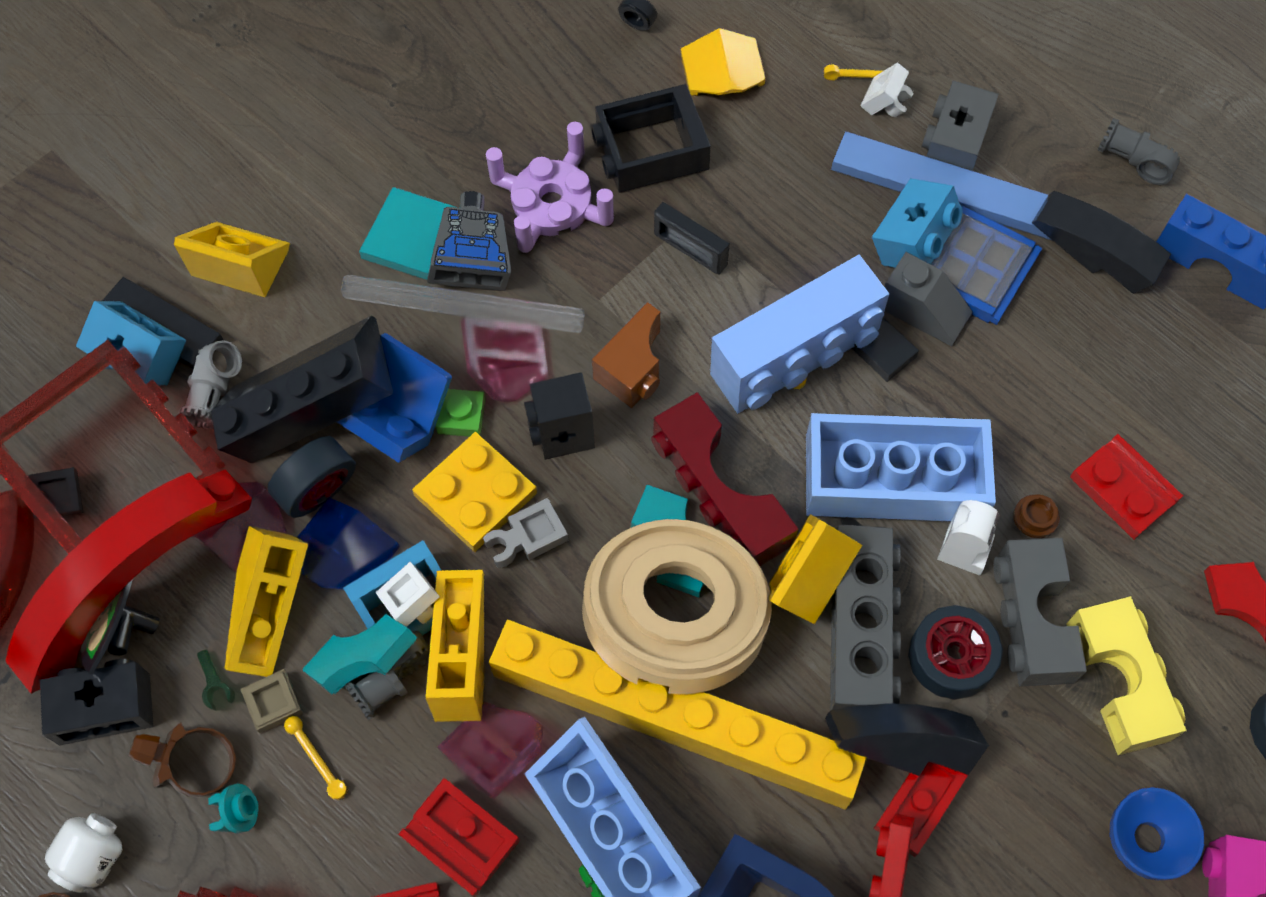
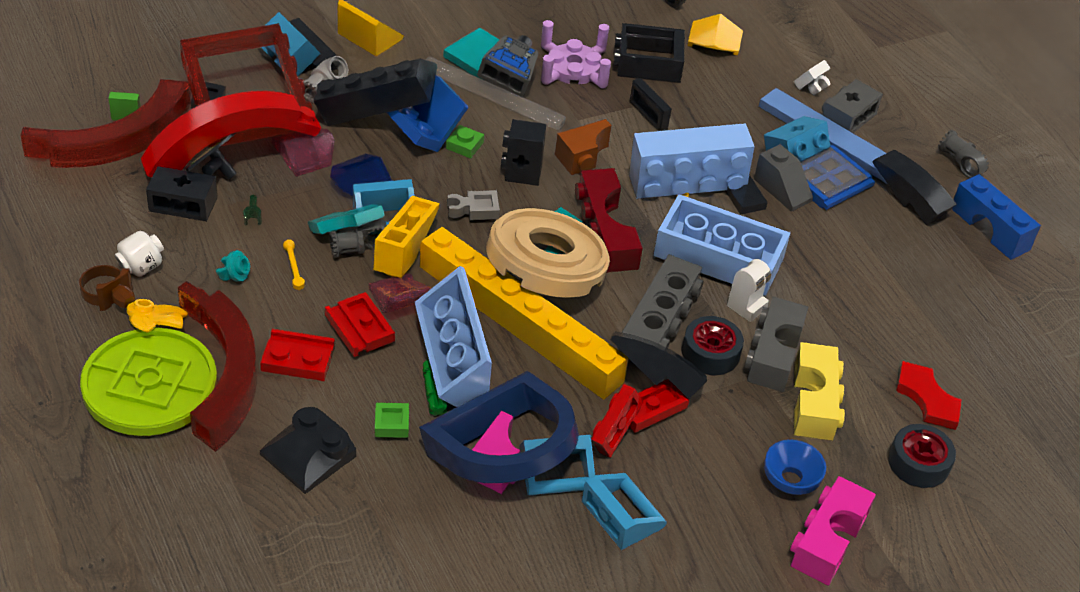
camera: 15 degrees right, 20 degrees down
(148, 749) = (201, 221): reddish brown piece -> none
(262, 599) = (303, 177): yellow slope -> none
(271, 701) = (281, 229): dark tan tile -> none
(311, 476) = (361, 131): black wheel -> none
(408, 596) = (390, 199): white tile -> none
(474, 491) = (452, 175): yellow plate -> none
(504, 356) = (497, 117): clear pink slope -> none
(812, 569) = (639, 262): yellow slope -> none
(832, 72) = (784, 60): yellow hinge -> none
(1036, 516) = (805, 297): reddish brown plate -> none
(1126, 486) = (868, 309): red plate -> none

